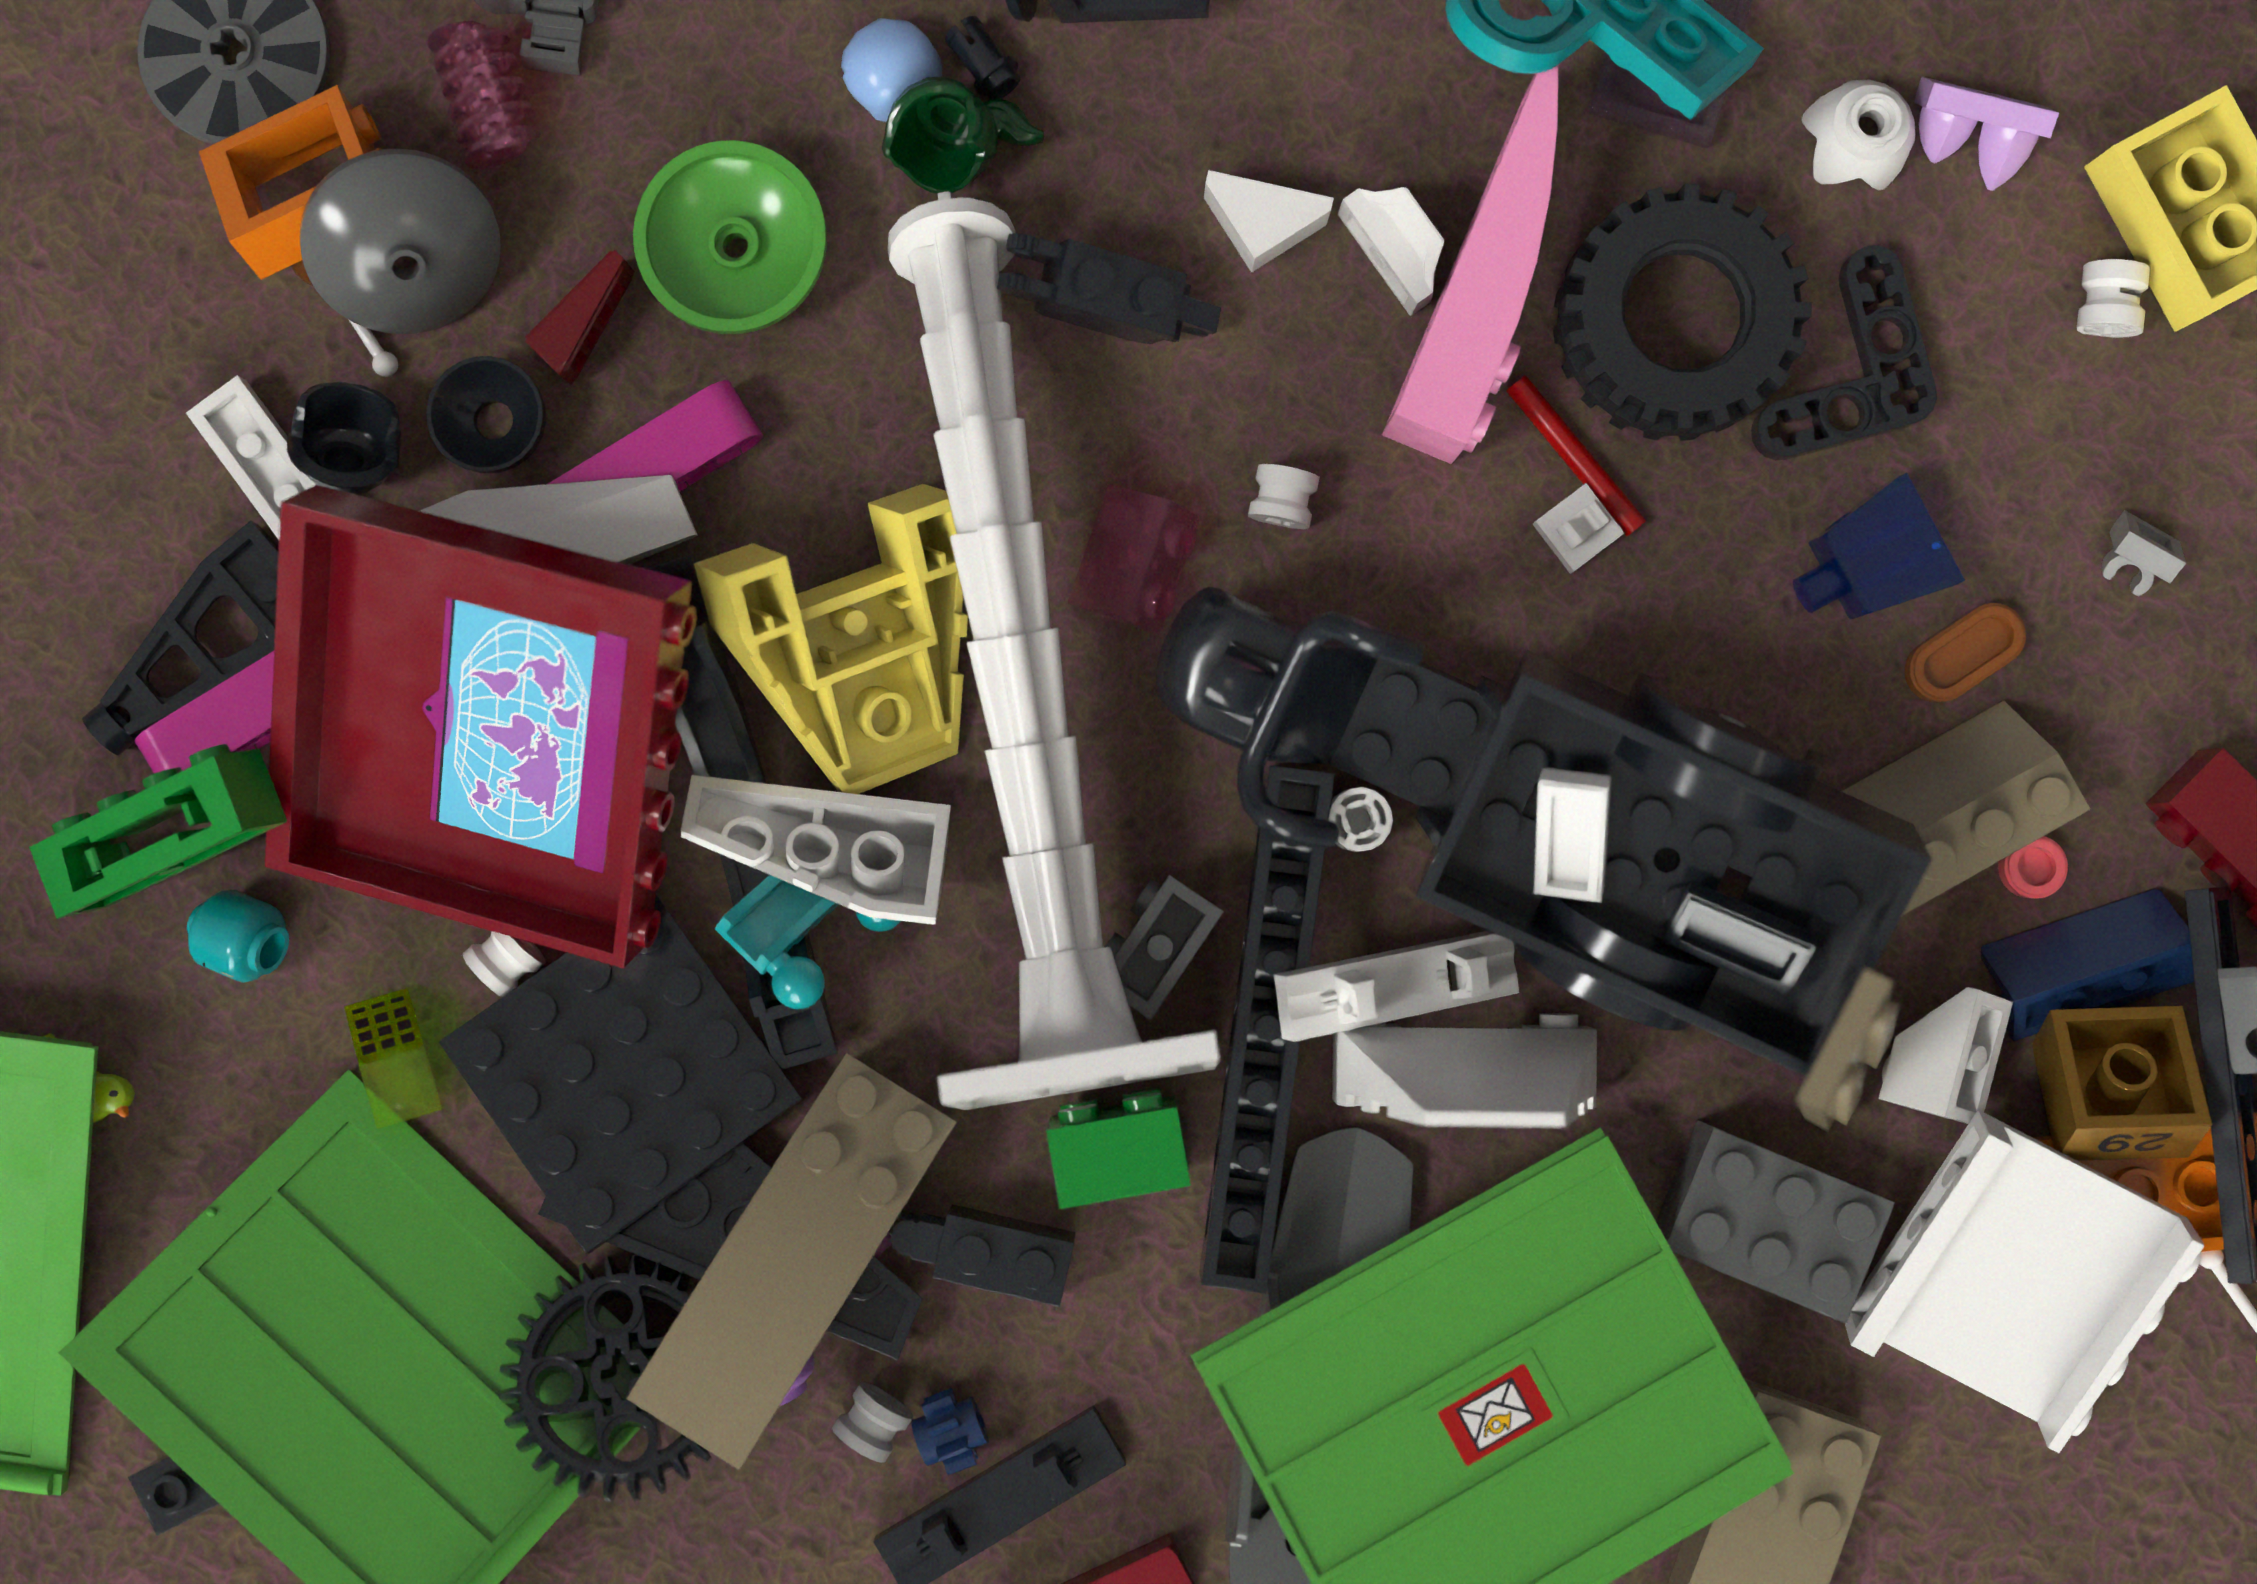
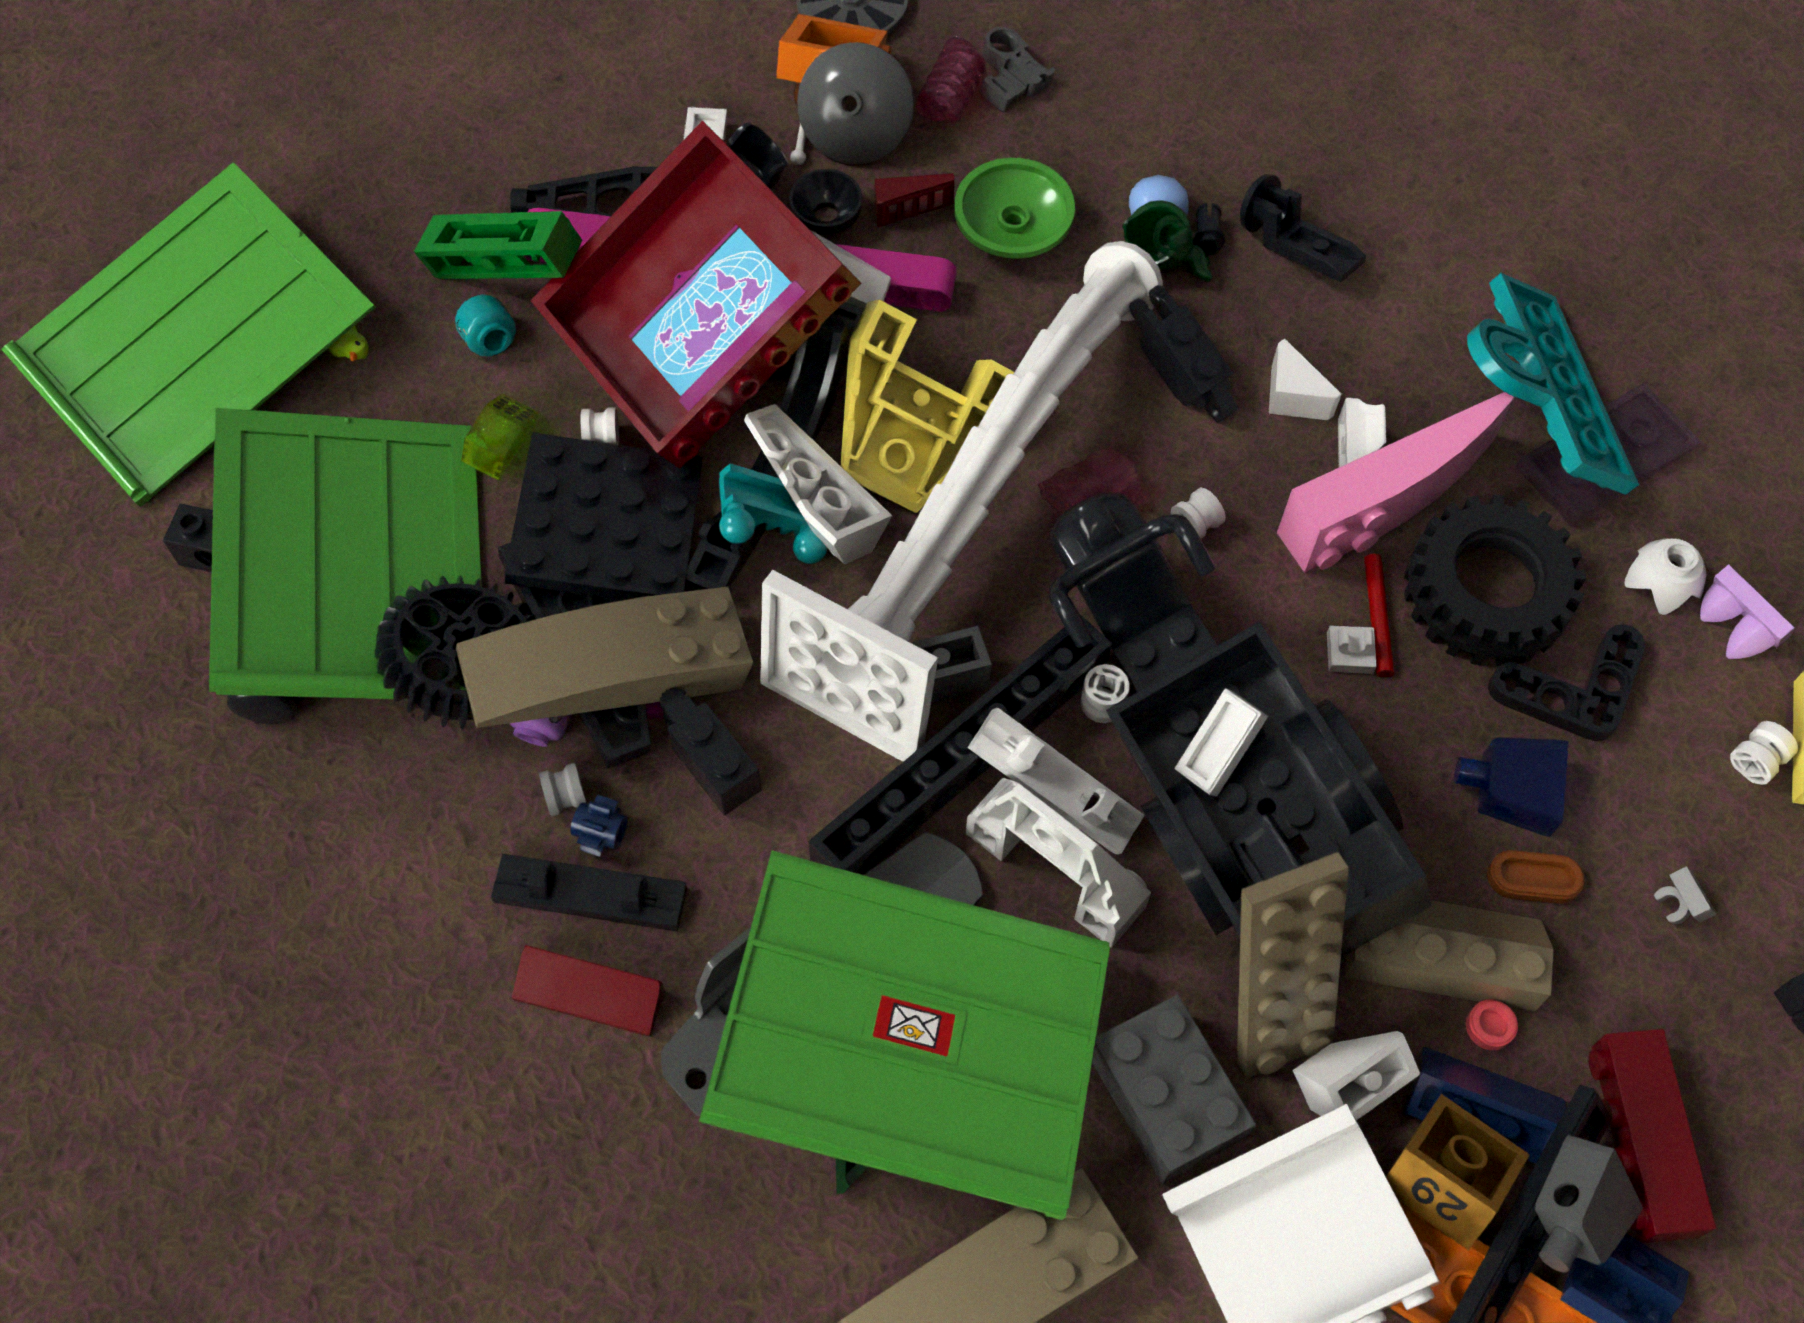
camera: 40 degrees right, 25 degrees down
(1117, 1148) = (825, 744): green piece -> none

